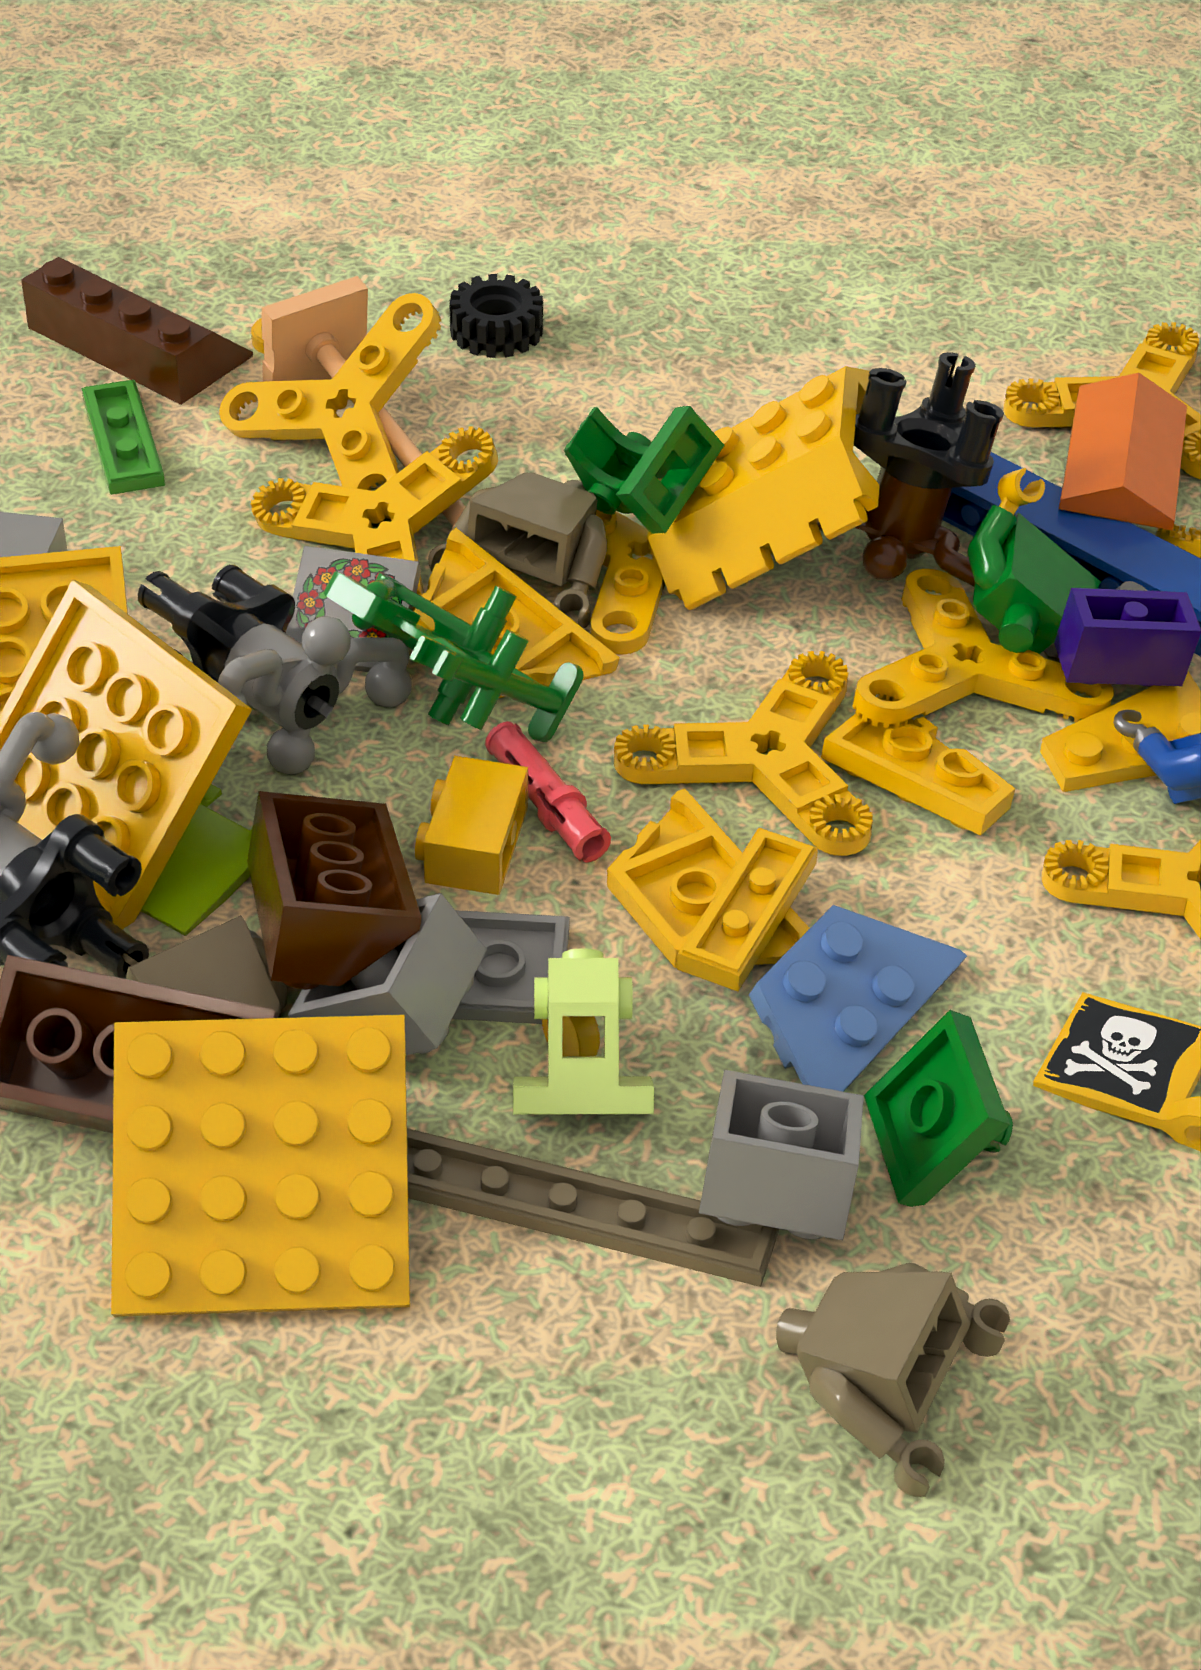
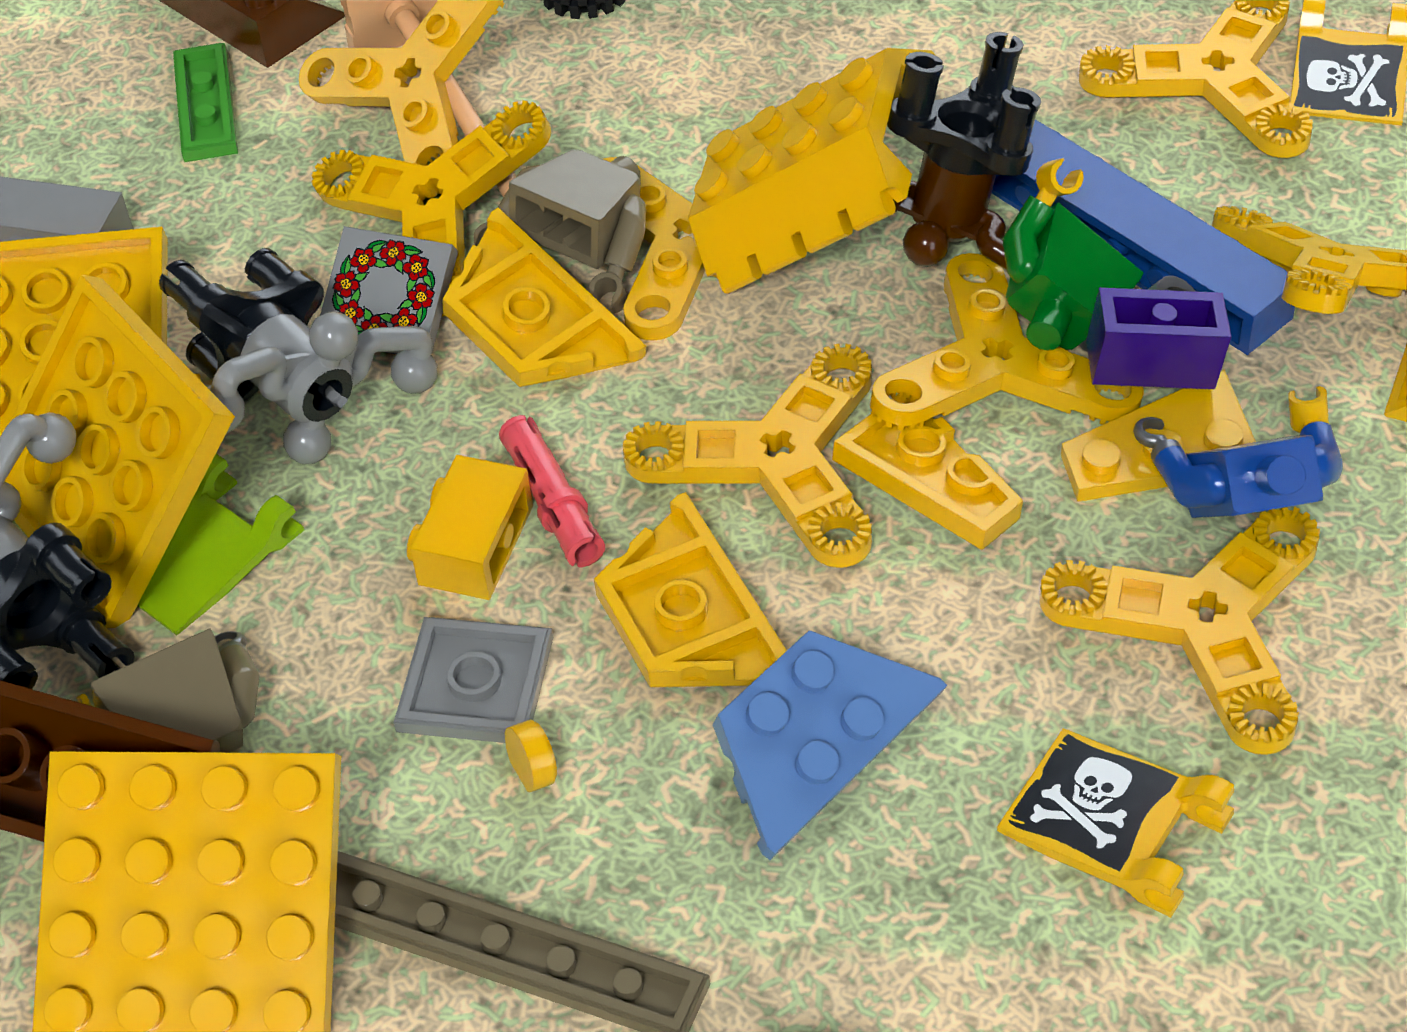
camera: 10 degrees right, 5 degrees up
(327, 887) = (299, 599): reddish brown slope -> none
(415, 979) = (353, 696): light grey brick -> none
(461, 652) = (476, 351): green piece -> none
(583, 986) = (538, 723): yellowish green tile -> none
(628, 468) = (669, 146): green tile -> none
(747, 909) = (725, 630): yellow tile -> none
(783, 1156) = (711, 909): light grey brick -> none
(937, 1110) = (883, 865): green tile -> none
(1125, 452) = (1189, 131): orange slope -> none

